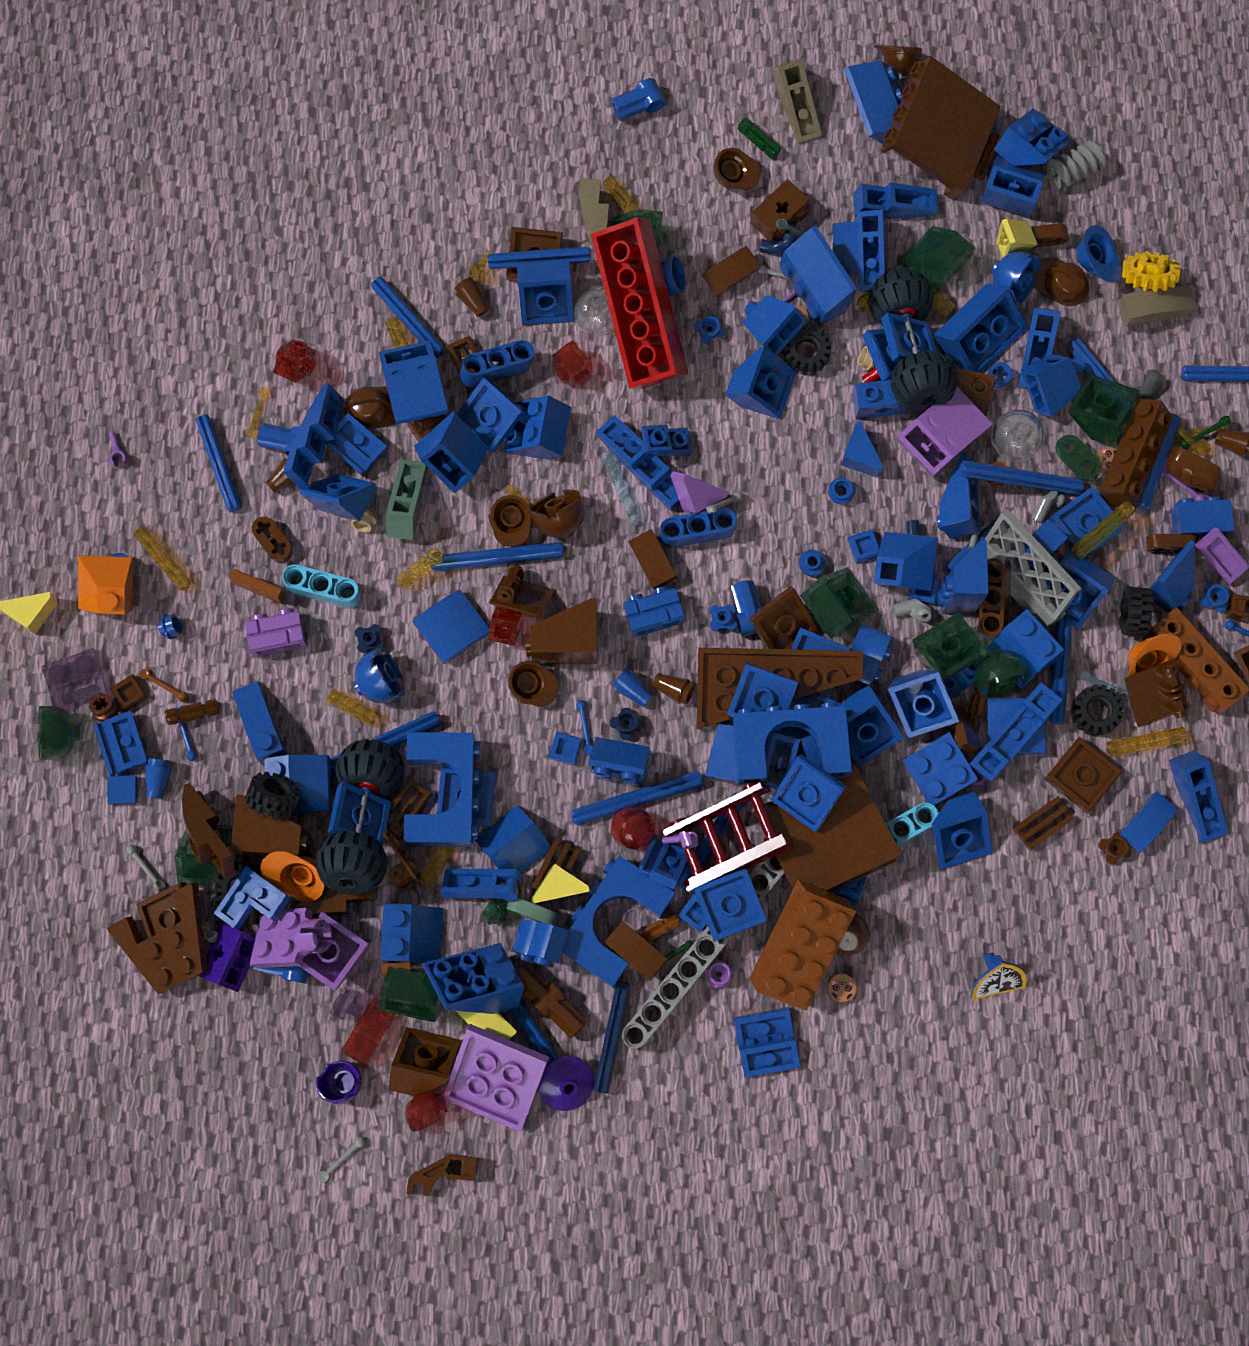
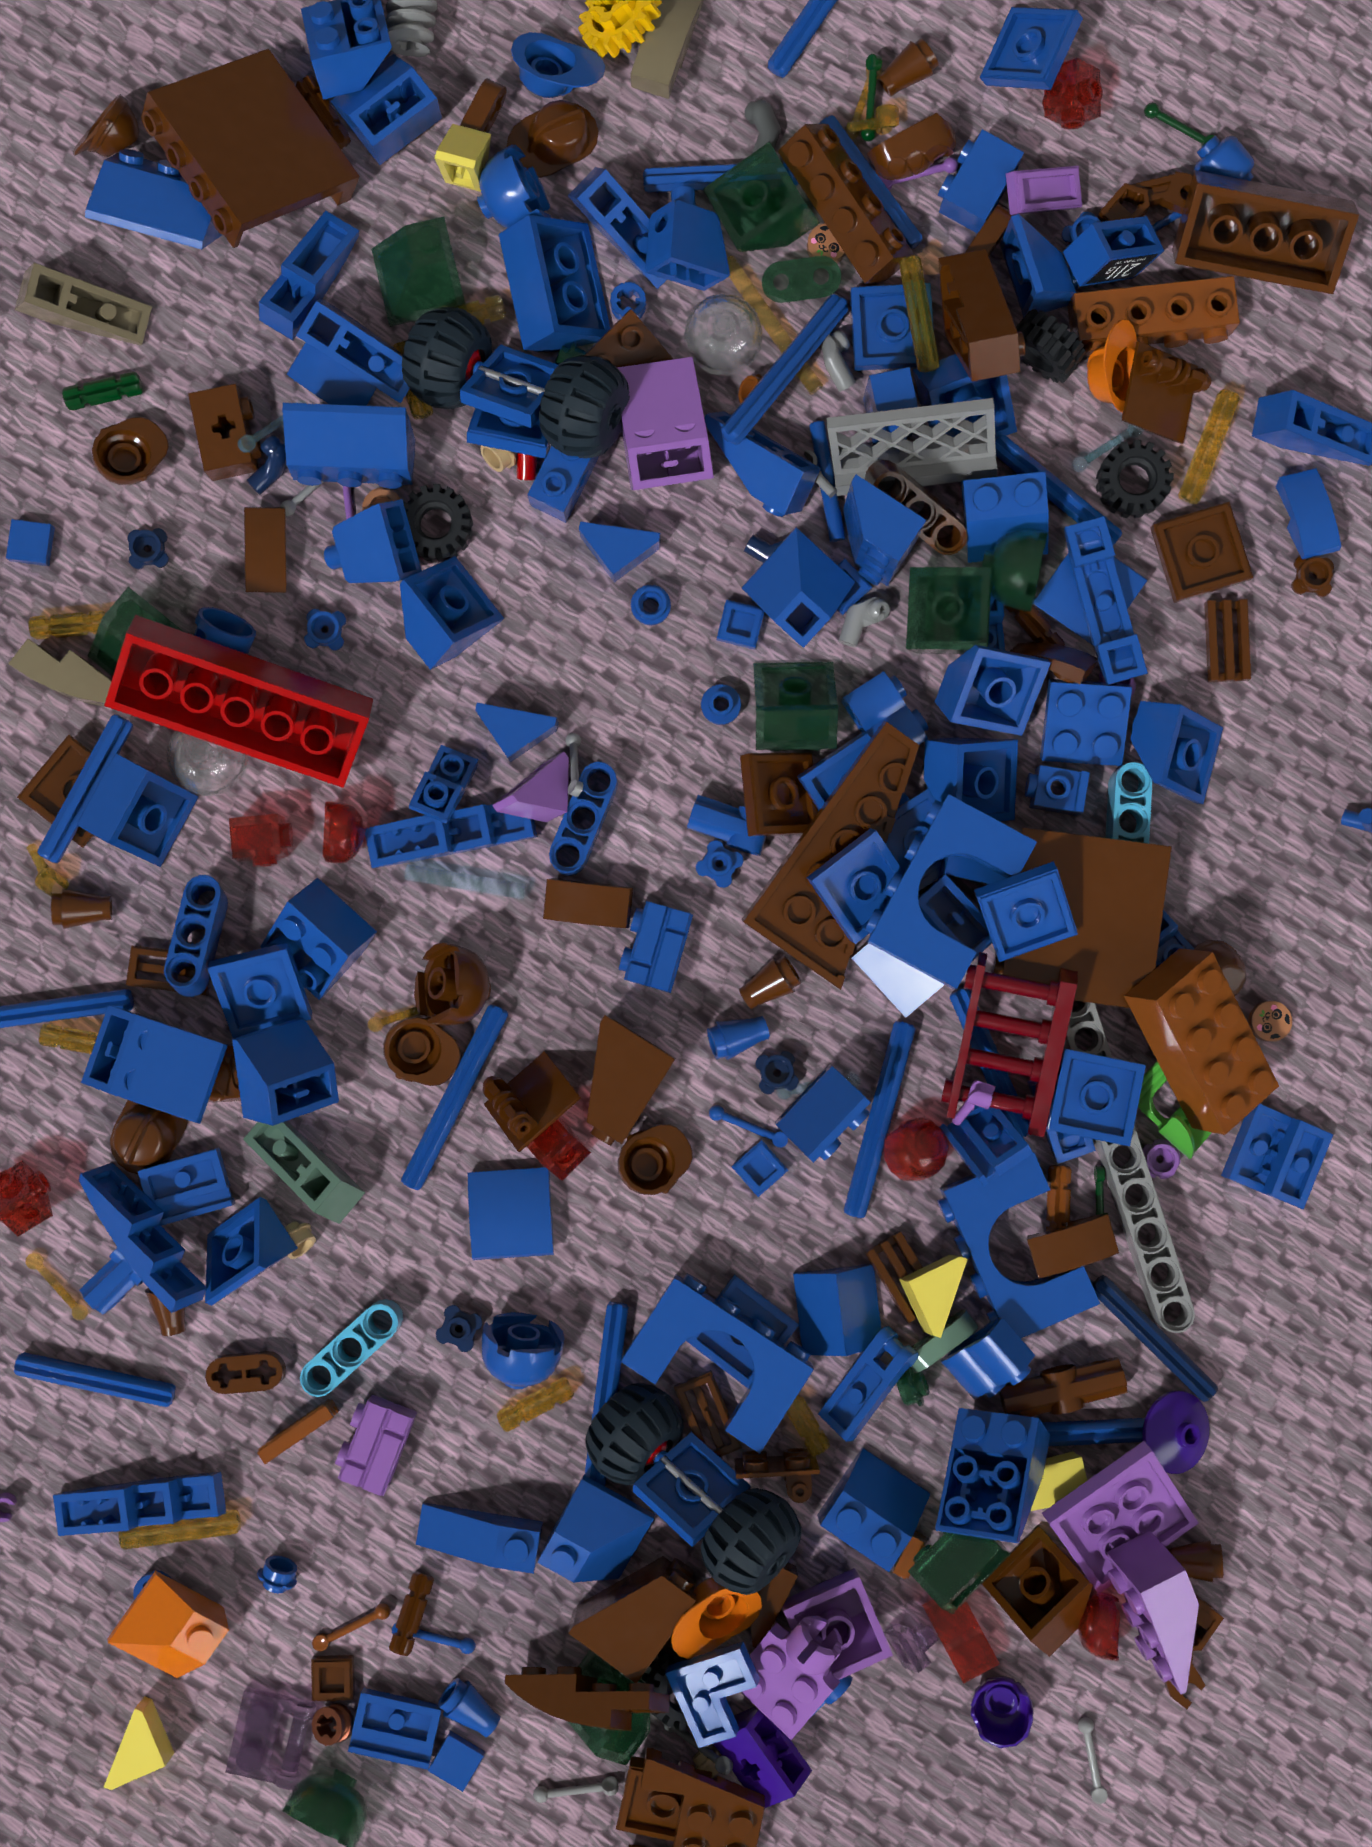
camera: 55 degrees left, 10 degrees up
(164, 528) = (139, 1504): none -> blue slope
(272, 796) = (612, 1601): black tyre -> none
(419, 568) = (409, 1207): clear yellow axle -> none
(457, 1127) = (1157, 1604): none -> medium lavender slope
(497, 1144) = (1200, 1560): none -> reddish brown cone
(604, 404) = (342, 832): none -> clear red hair
(652, 152) = (30, 542): none -> blue tile
(690, 205) = (139, 540): none -> dark blue plate
(722, 461) = (516, 729): none -> blue slope
(741, 962) = (1177, 1127): none -> bright green helmet
(888, 787) = (1042, 798): none -> blue brick
(1043, 456) = (769, 321): none -> clear yellow bar
(1123, 560) = (978, 317): none -> reddish brown wedge
(1215, 613) = (1113, 251): none -> blue brick

